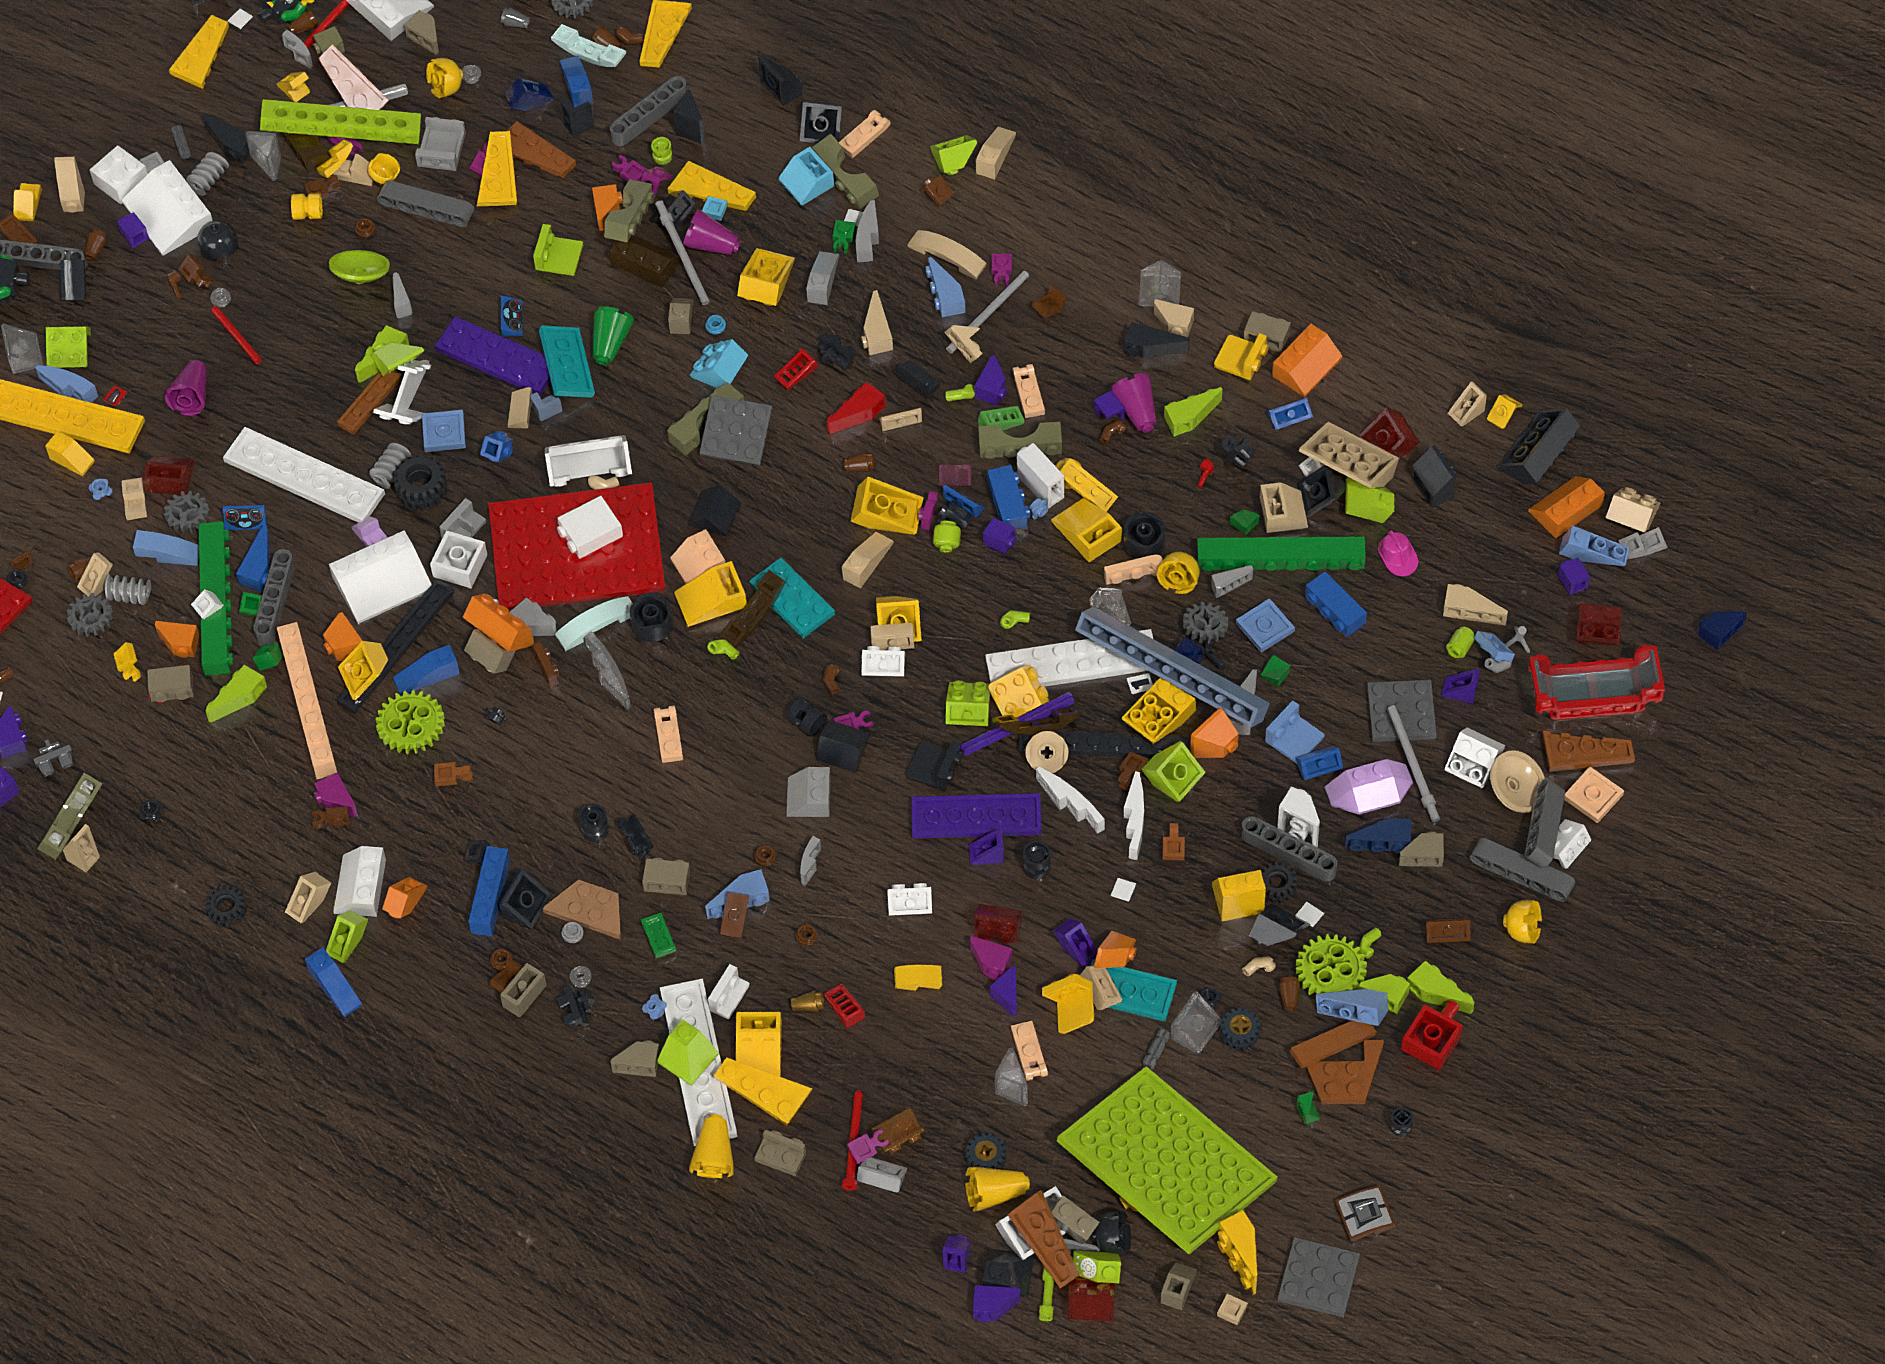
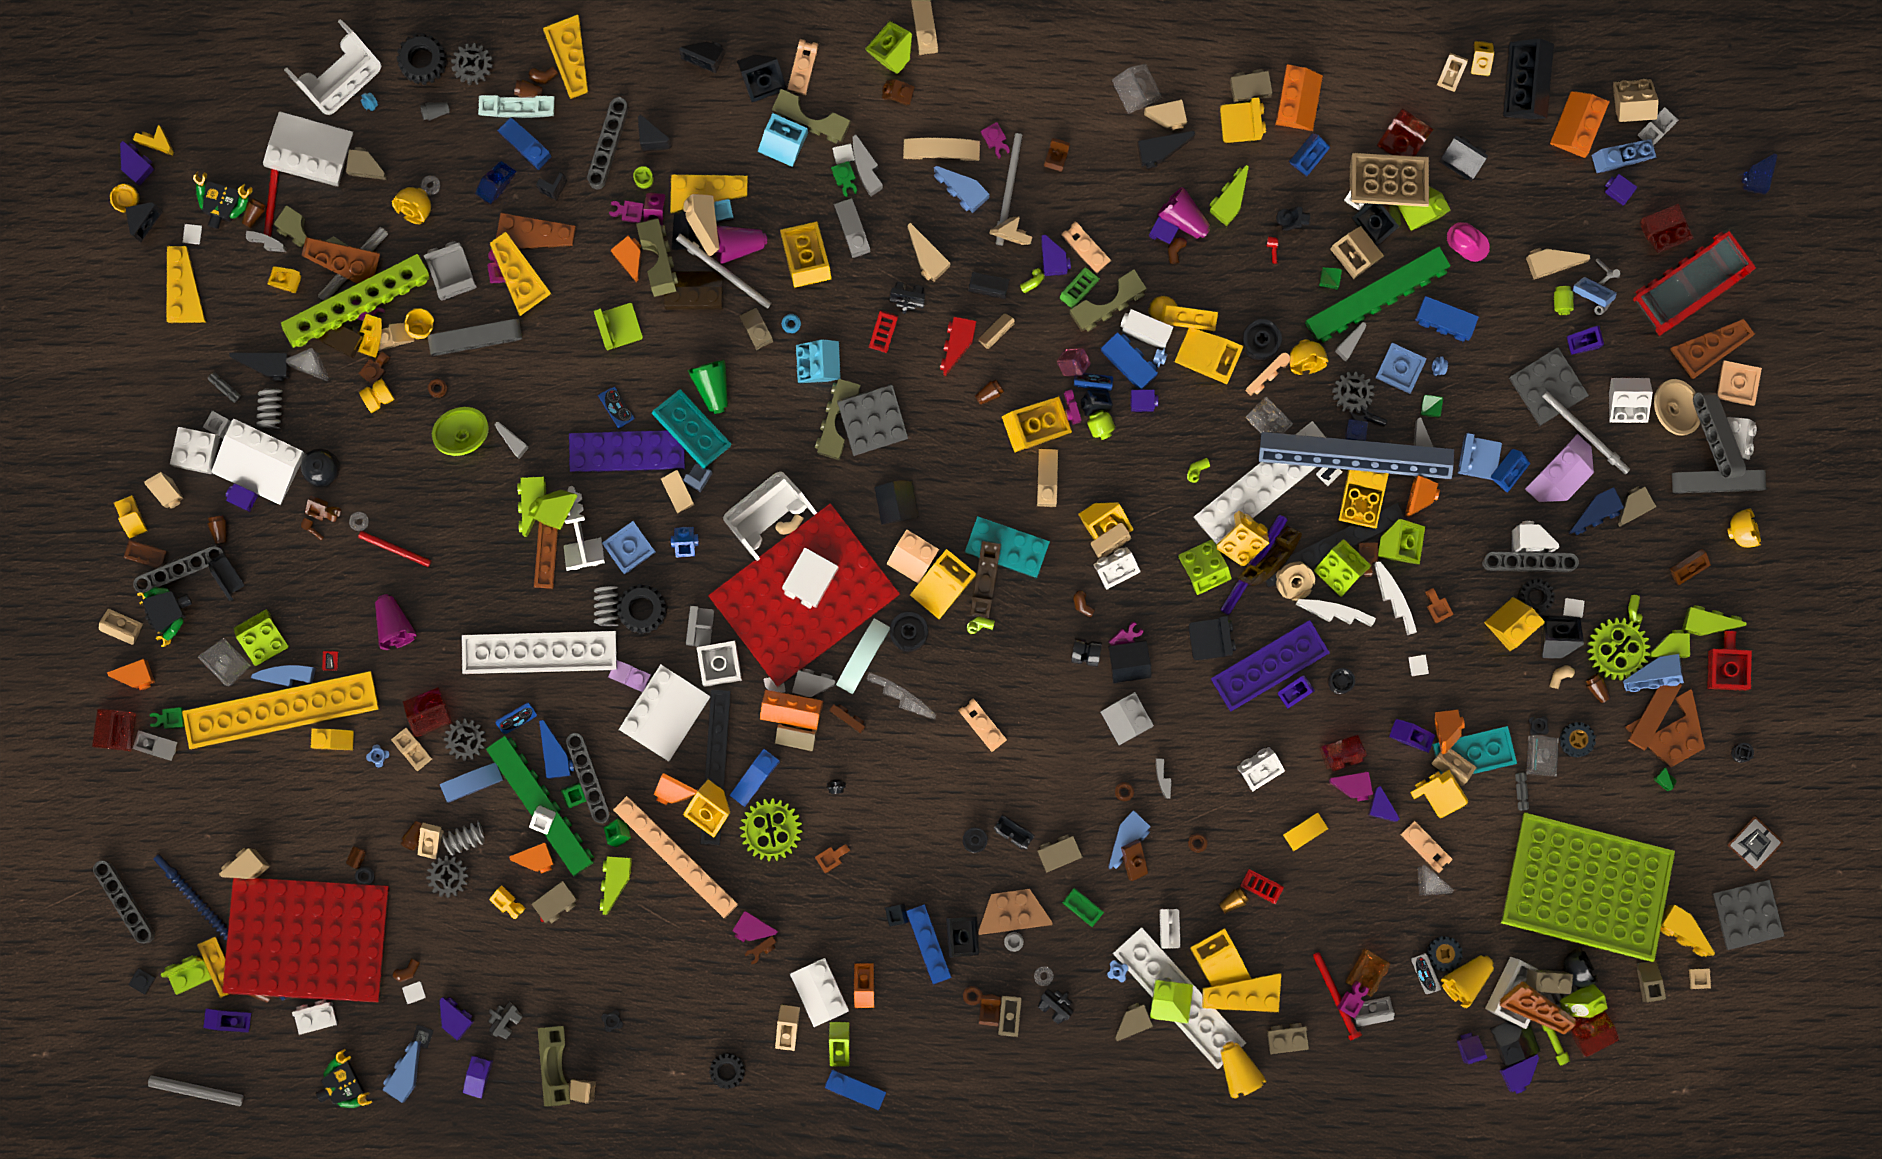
camera: 30 degrees left, 25 degrees up
(689, 198) = (702, 219): none -> tan slope
(956, 1164) = (1426, 973): none -> slope
(1097, 759) = (1342, 567): none -> lime bracket
(1303, 641) = (1439, 366): none -> medium blue plate

